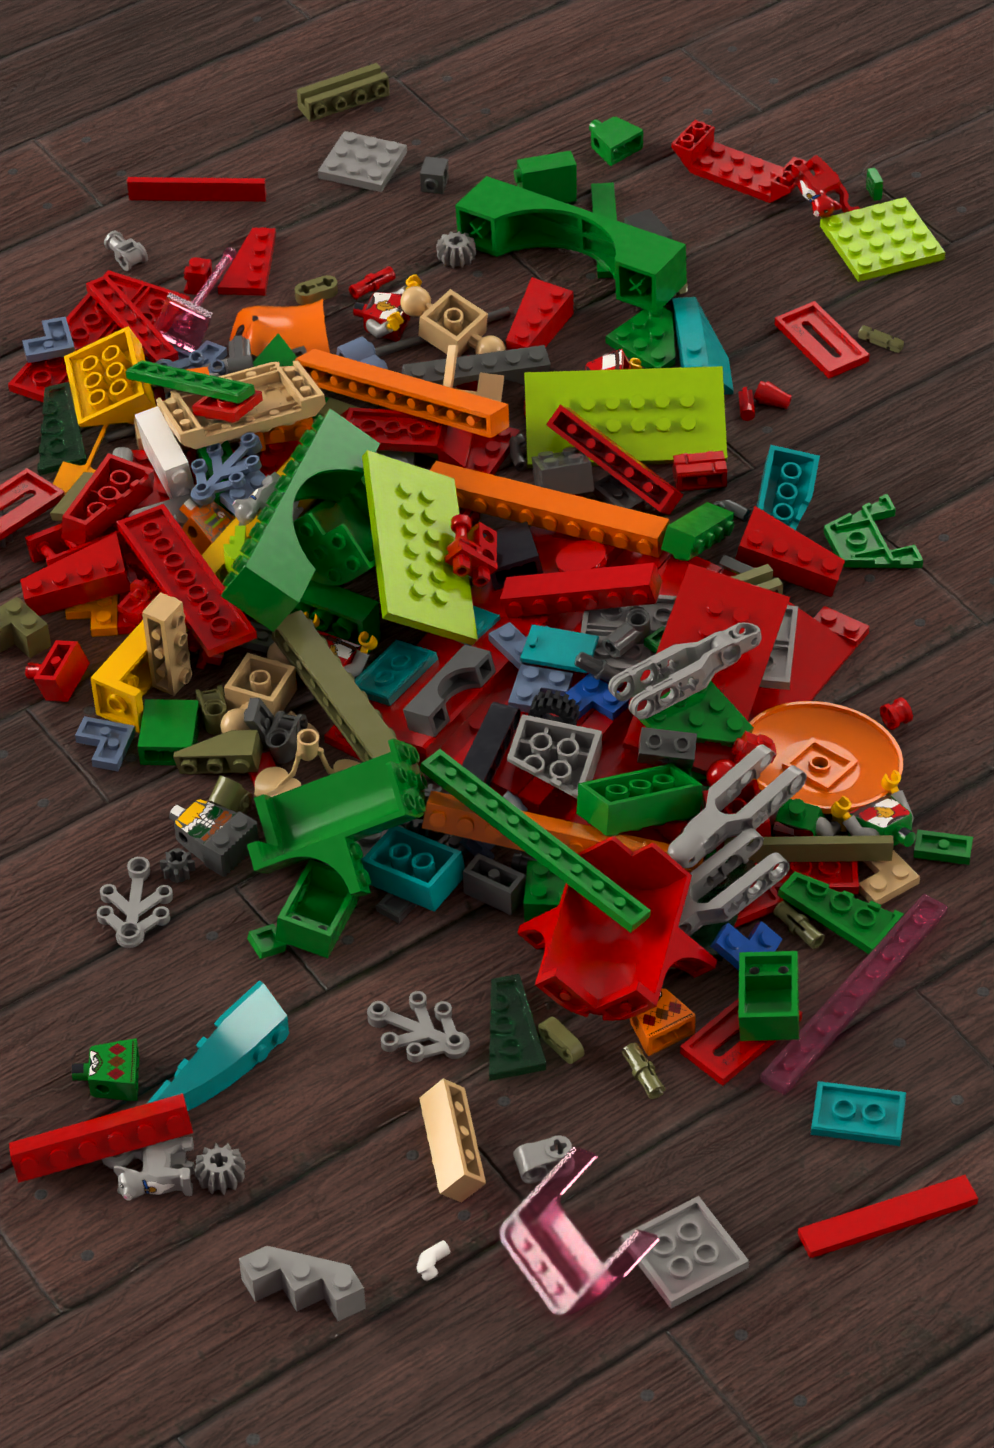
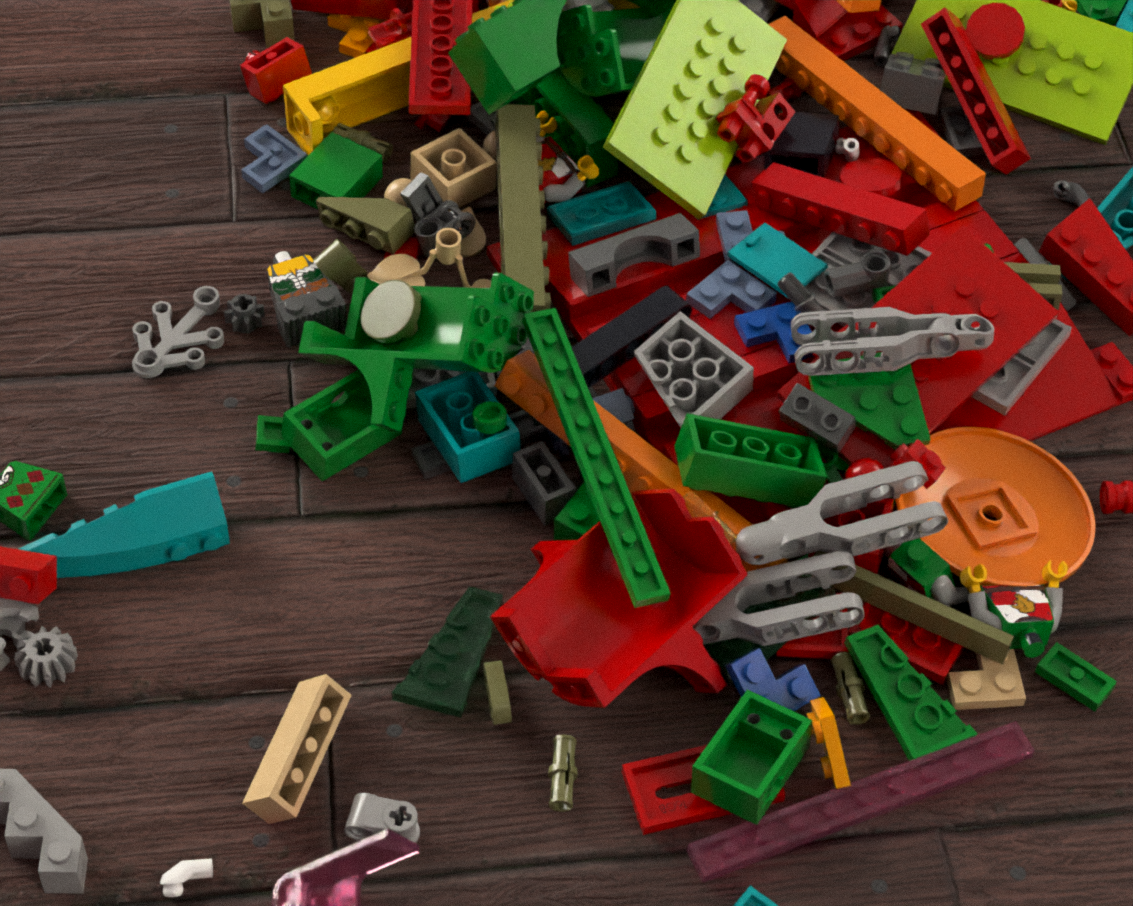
camera: 25 degrees right, 5 degrees up
(167, 644) = (381, 81): tan brick -> none
(168, 694) = (365, 139): none -> olive pin
(212, 708) = (394, 165): olive piece -> none
(298, 811) = (391, 312): none -> tile
(380, 1016) = (359, 608): light grey plant -> none
(434, 851) = (489, 417): none -> green tile
(548, 543) = (848, 147): none -> white arm
(555, 704) = (723, 322): black tyre -> none
(602, 406) = (996, 30): none -> red tile
(664, 1024) = (621, 728): orange torso -> none
(697, 531) = (1014, 200): green brick -> none
(699, 470) = (1066, 141): red brick -> none
(812, 958) = (826, 732): none -> light orange plate

